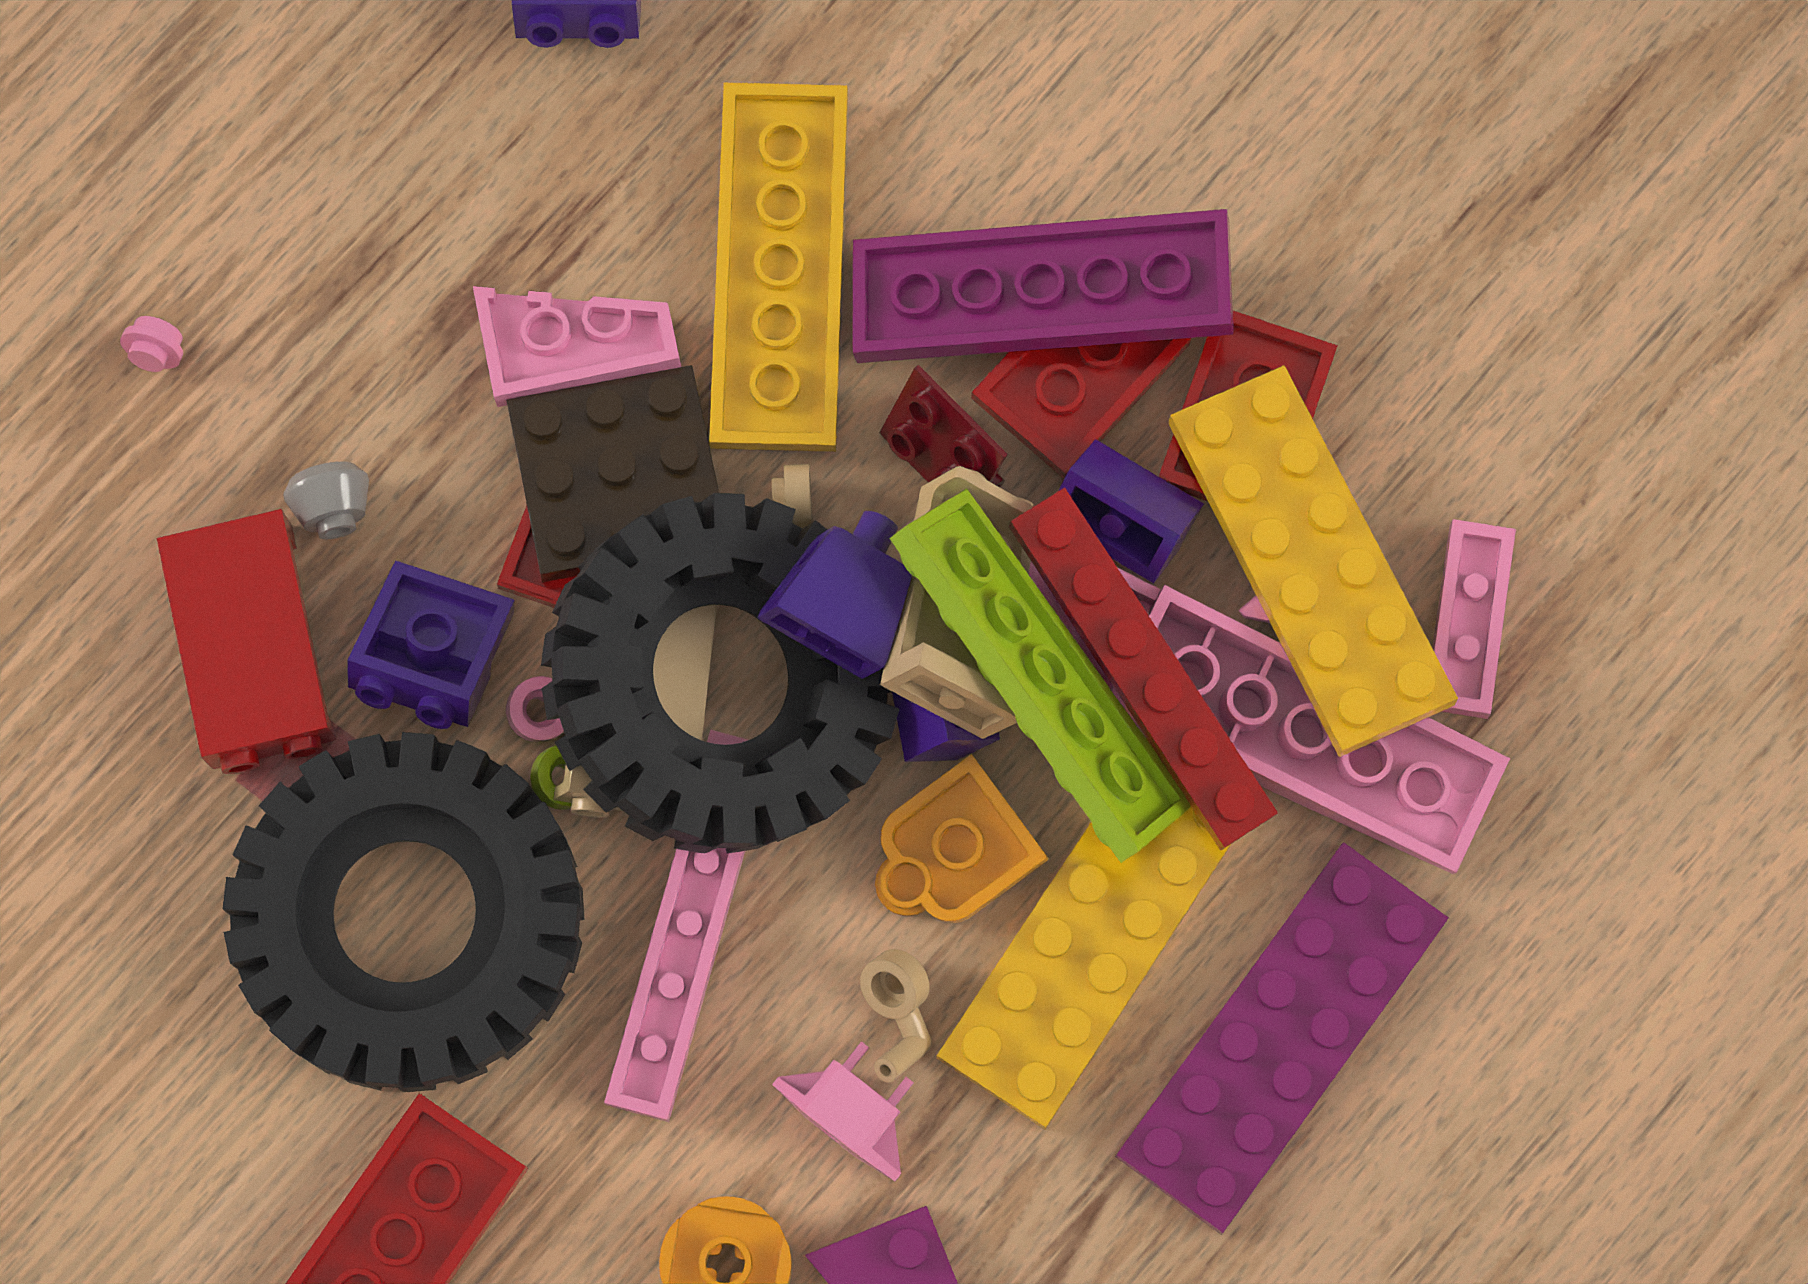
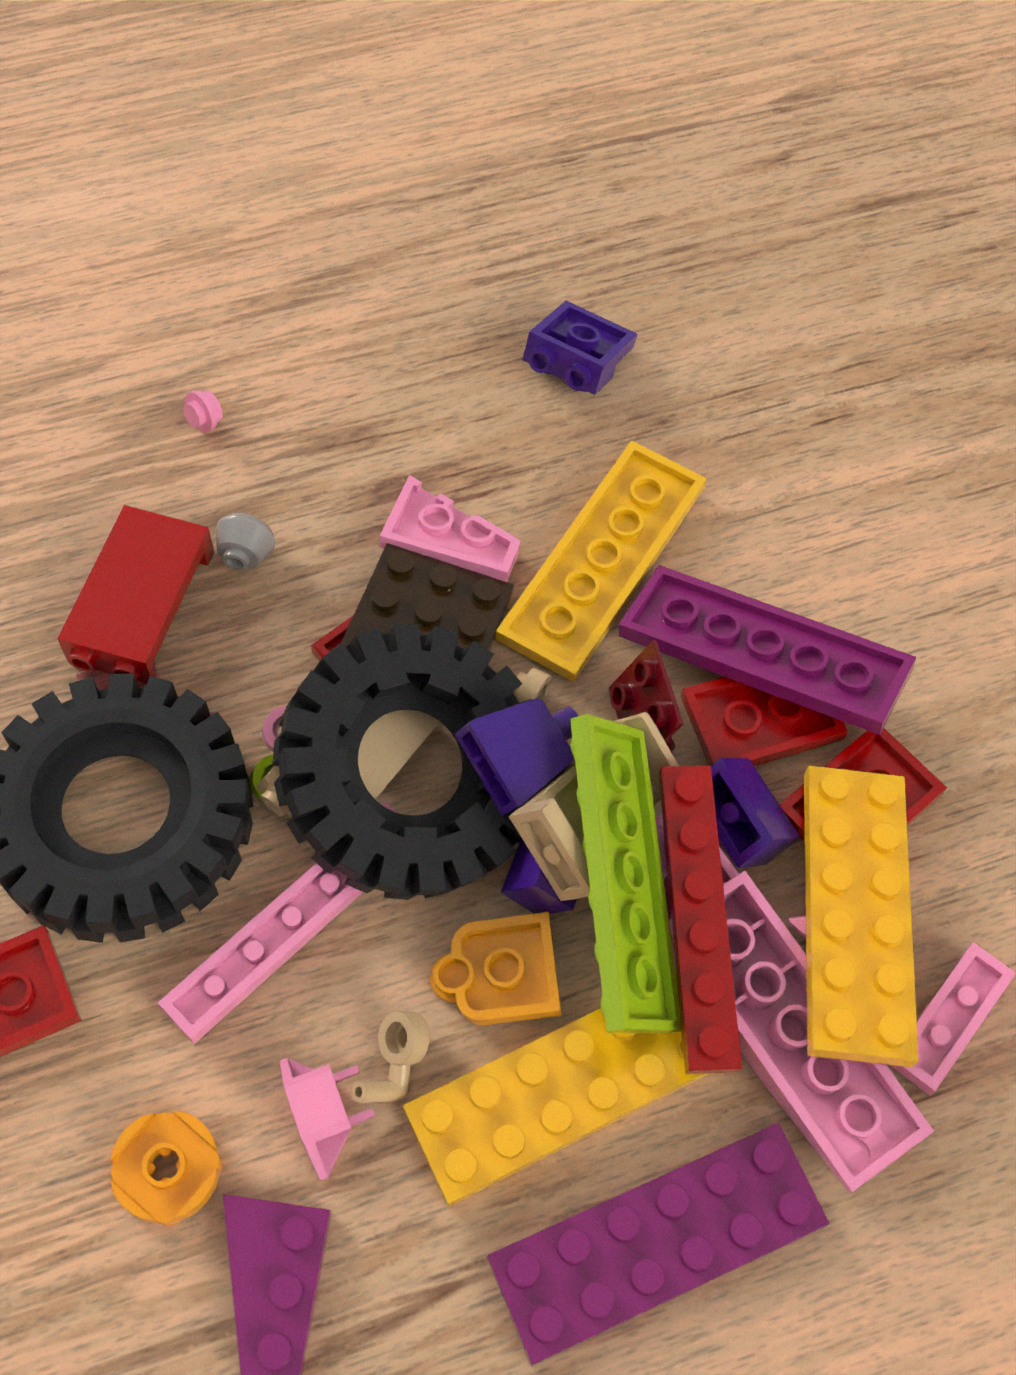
camera: 25 degrees right, 15 degrees down
(428, 646) = (243, 656): dark purple plate -> none

